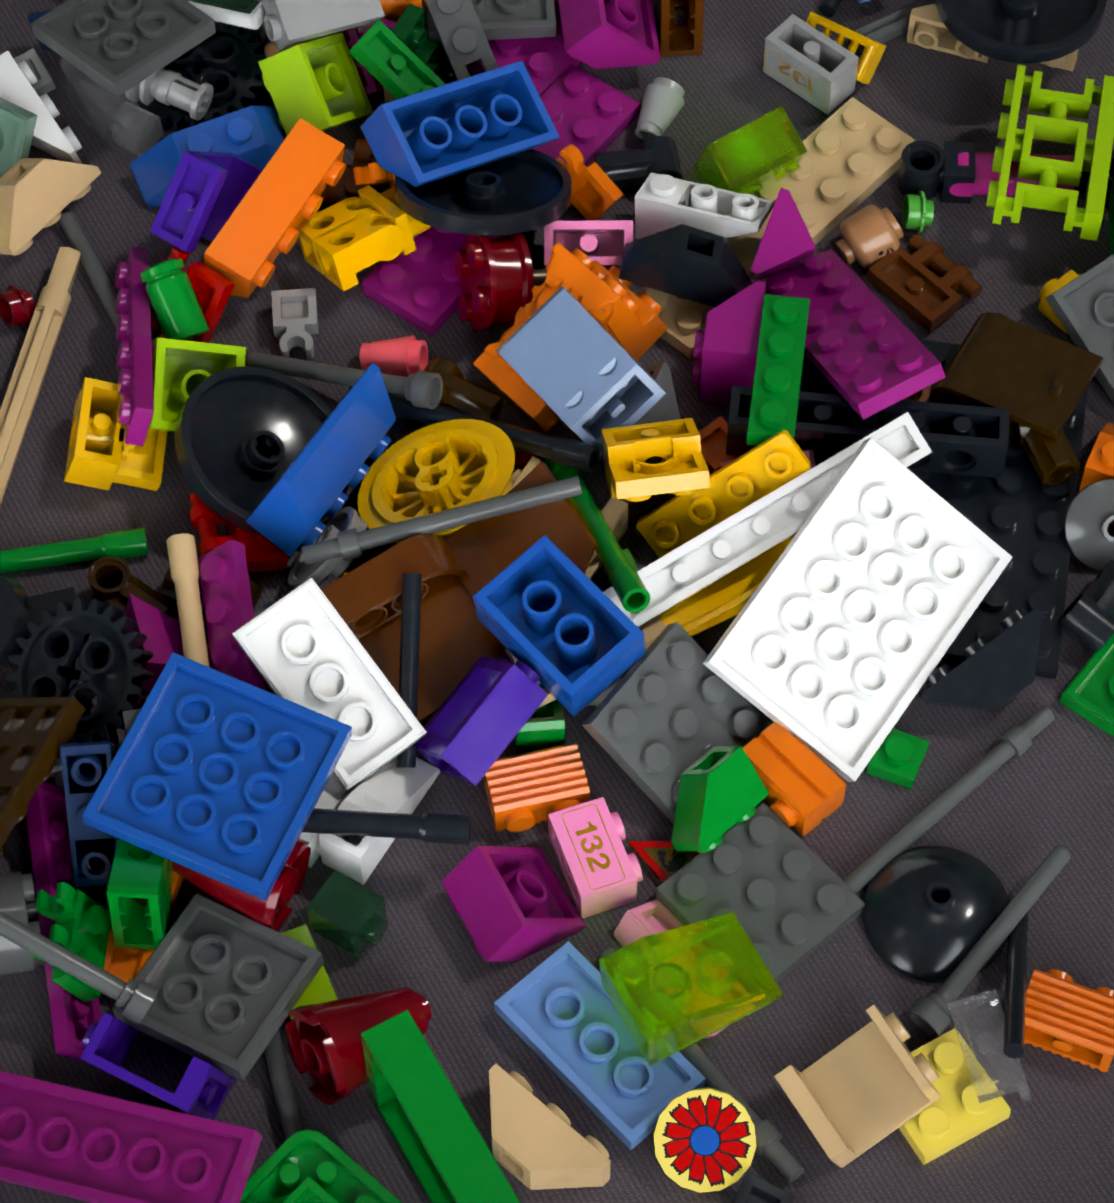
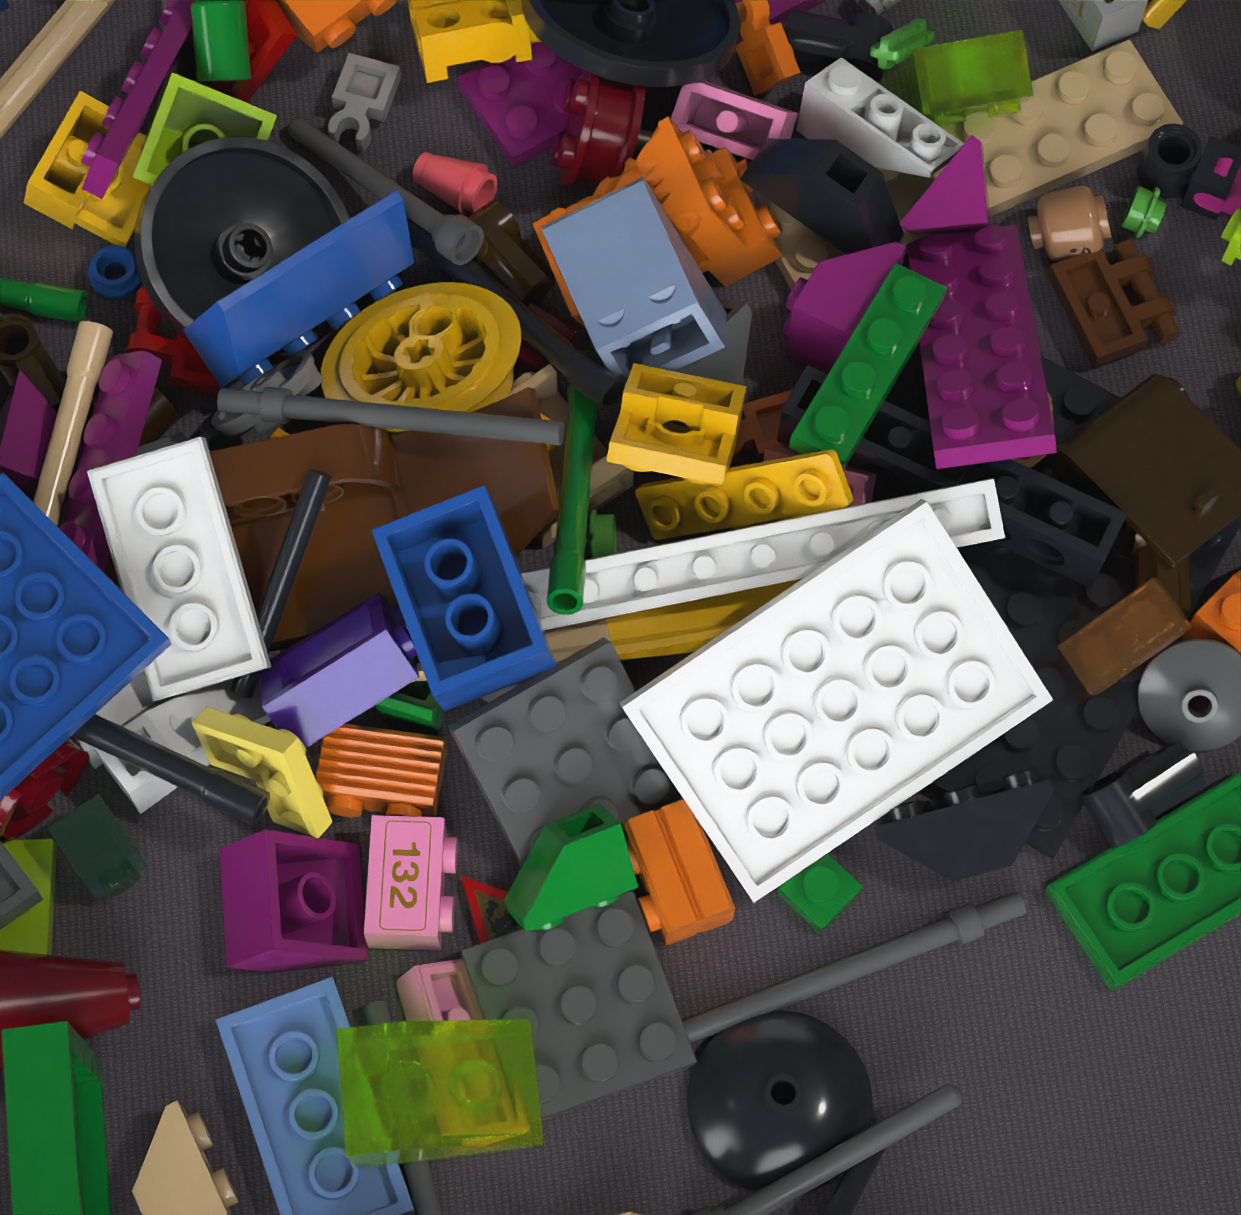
camera: 20 degrees right, 10 degrees up
(156, 498) = (110, 260): none -> blue plate
(457, 791) = (271, 759): none -> light yellow plate
(689, 150) = (899, 44): none -> bright green axle
(1042, 498) = (1124, 636): none -> clear orange plate

